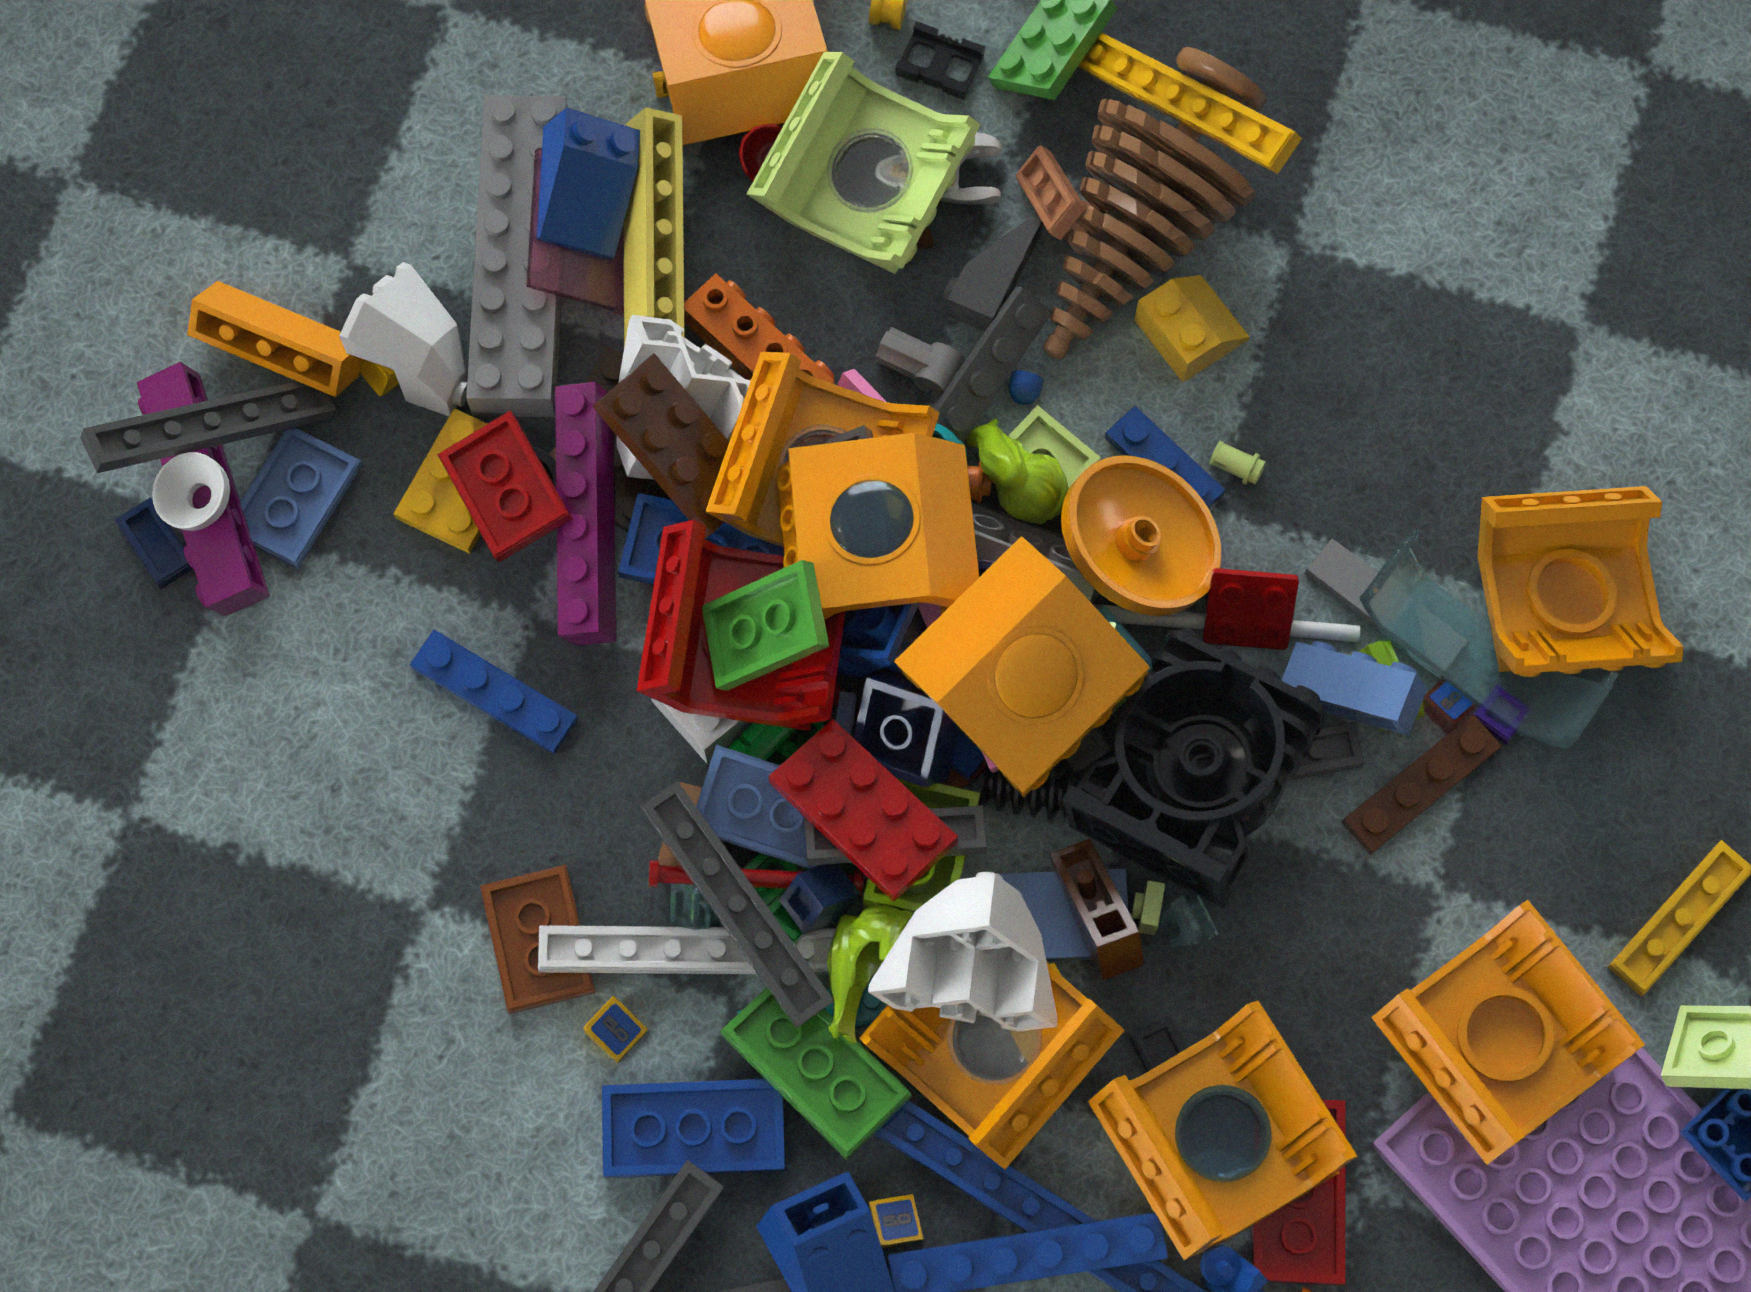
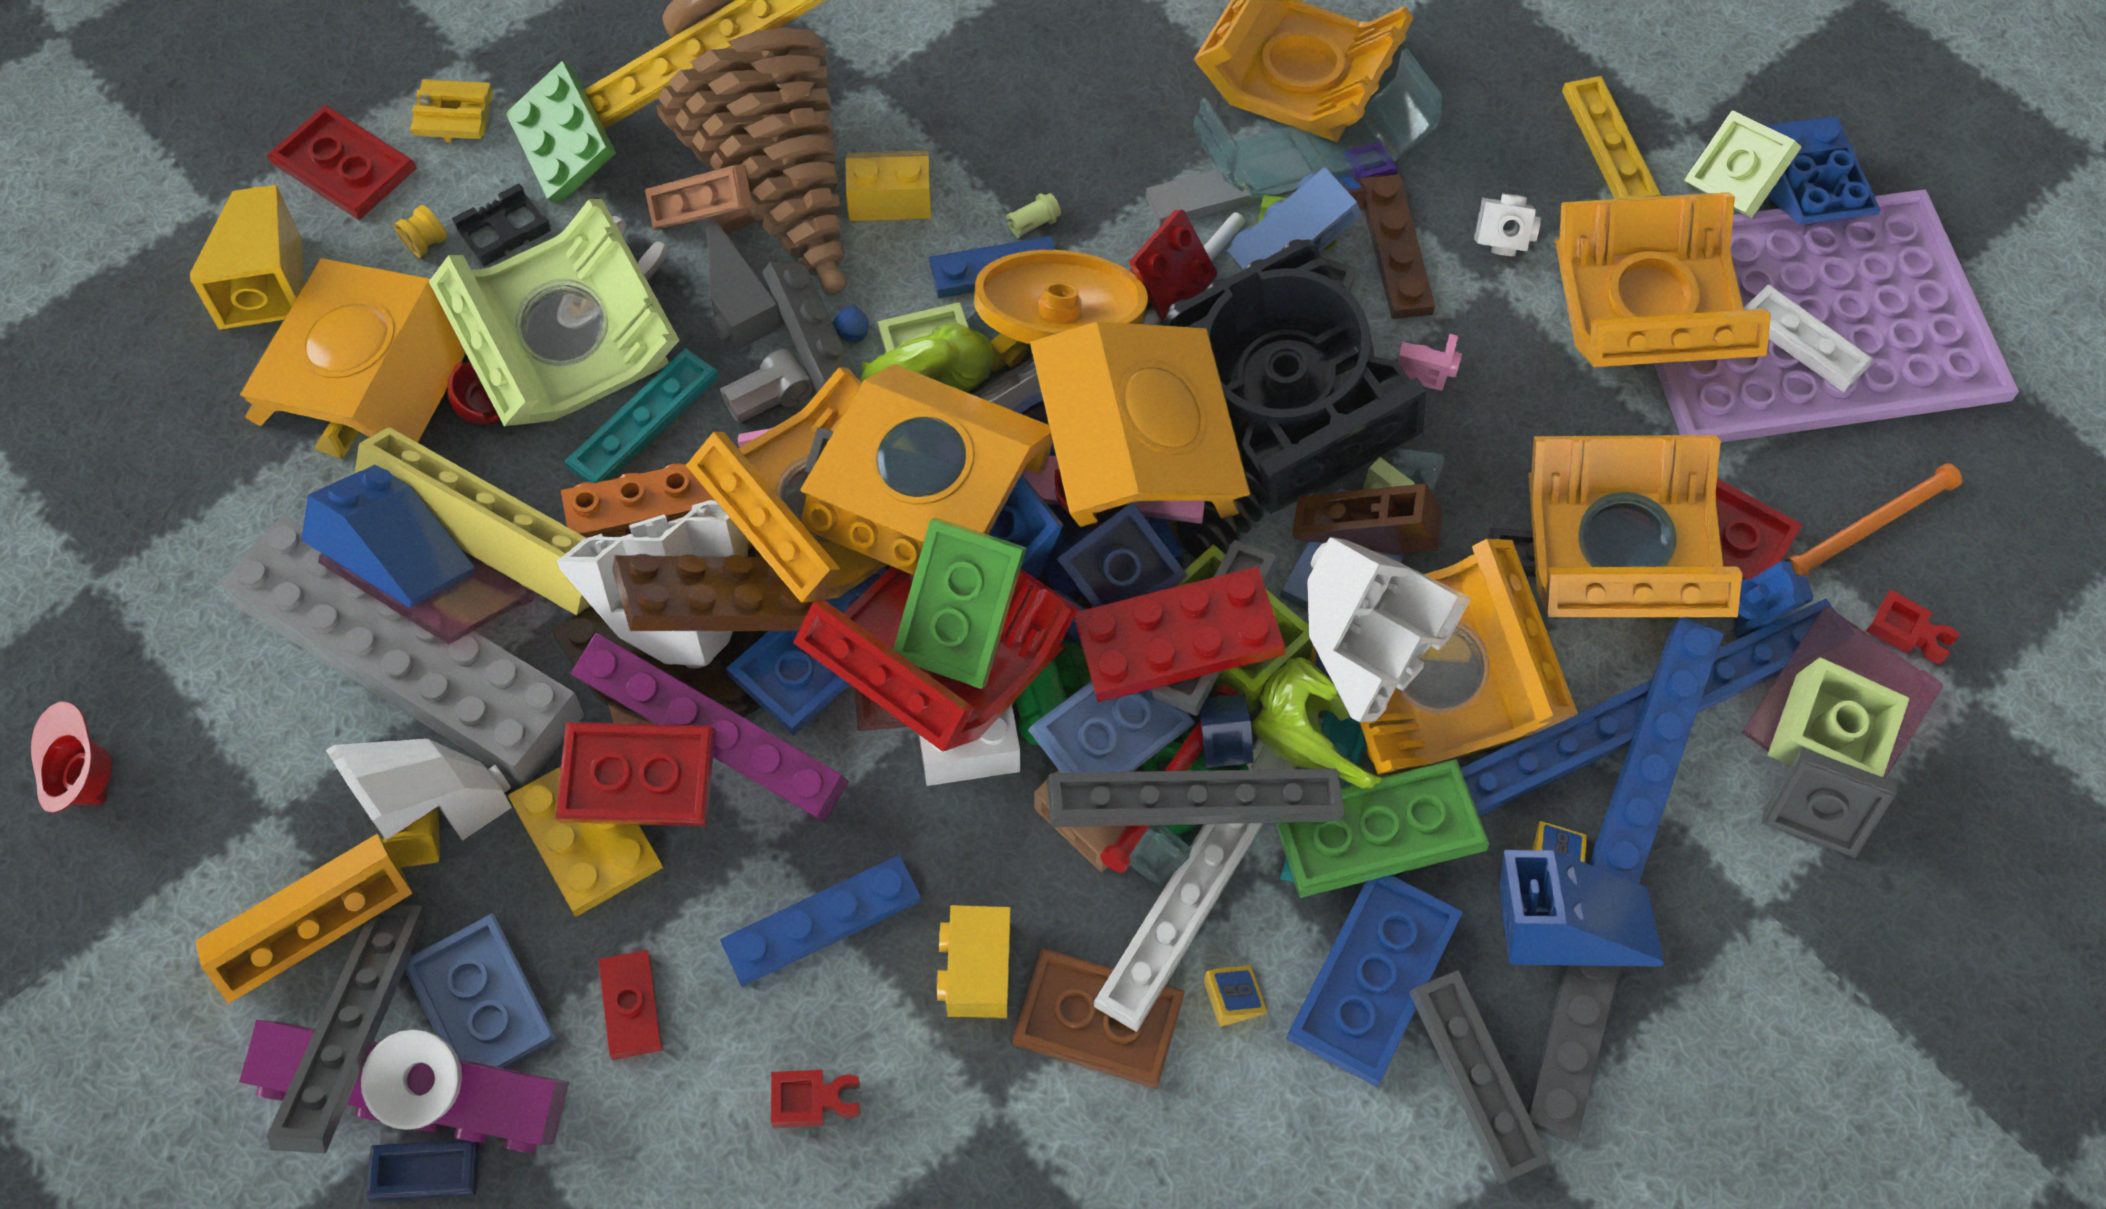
camera: 60 degrees left, 10 degrees down
(294, 102) = (66, 761): none -> red piece
(350, 600) = (630, 1005): none -> red plate
(350, 765) = (802, 1098): none -> red plate
(523, 822) = (977, 962): none -> yellow brick
(833, 287) = (642, 418): none -> teal tile
(1298, 874) = (1430, 365): none -> bright pink bracket
(1501, 867) = (1496, 213): none -> white brick
(1554, 1197) = (1811, 340): none -> white tile

